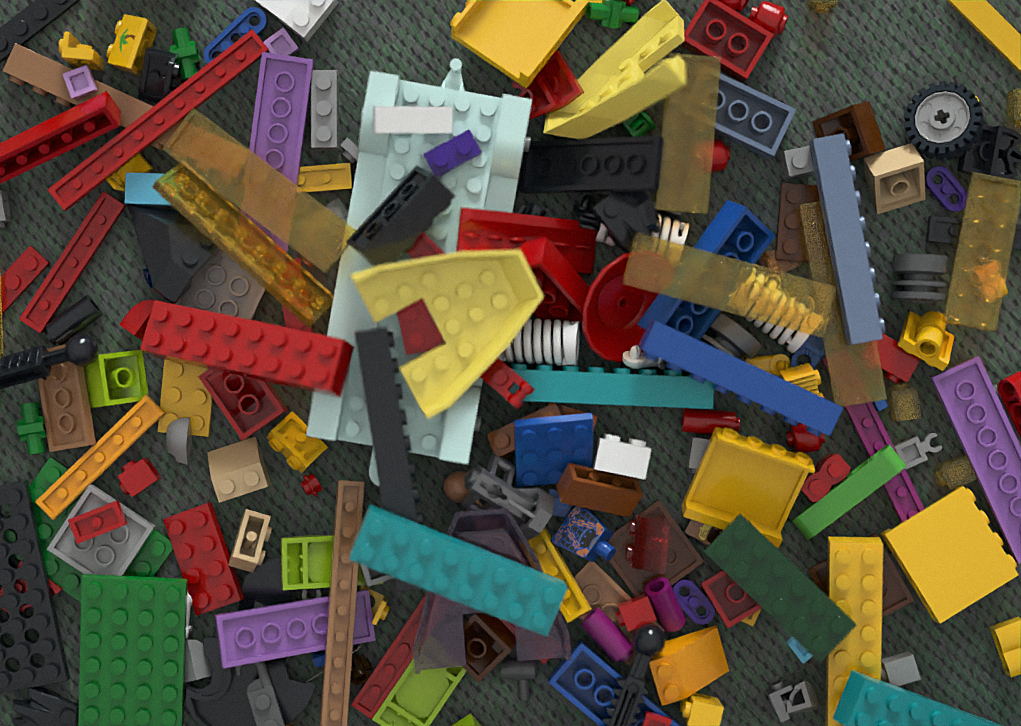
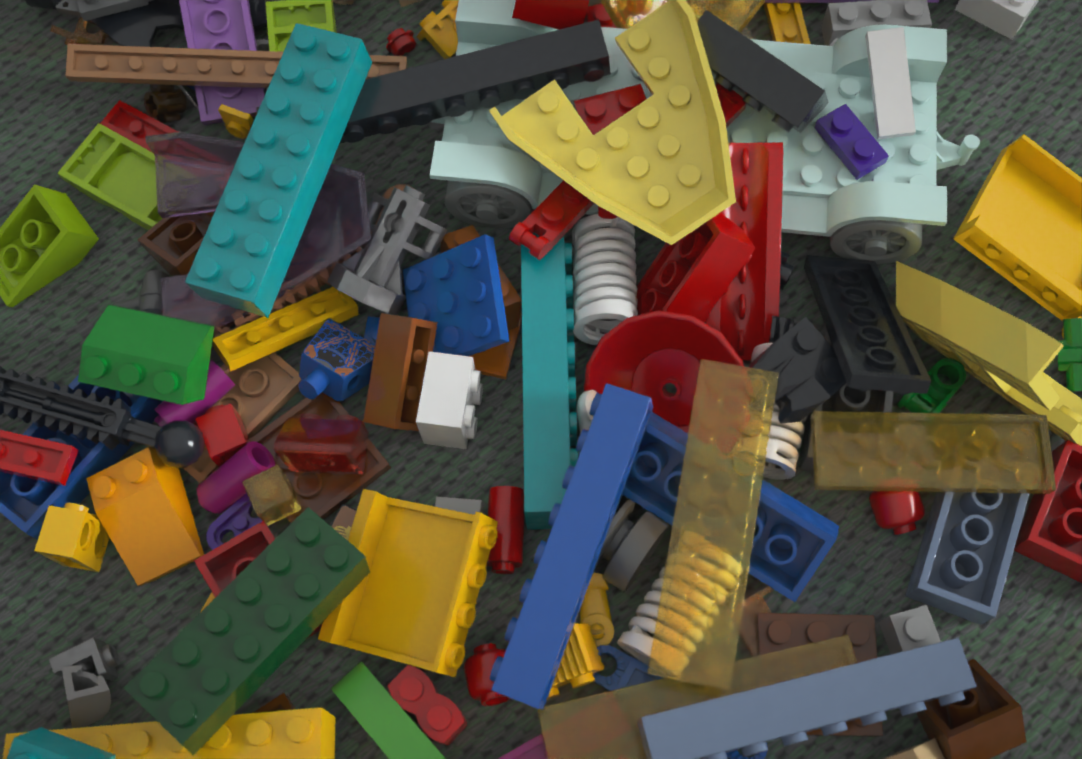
camera: 90 degrees right, 20 degrees down
(551, 88) = (960, 269): red plate -> none
(589, 663) = (147, 355): none -> green slope
(682, 578) = (272, 495): none -> clear yellow brick

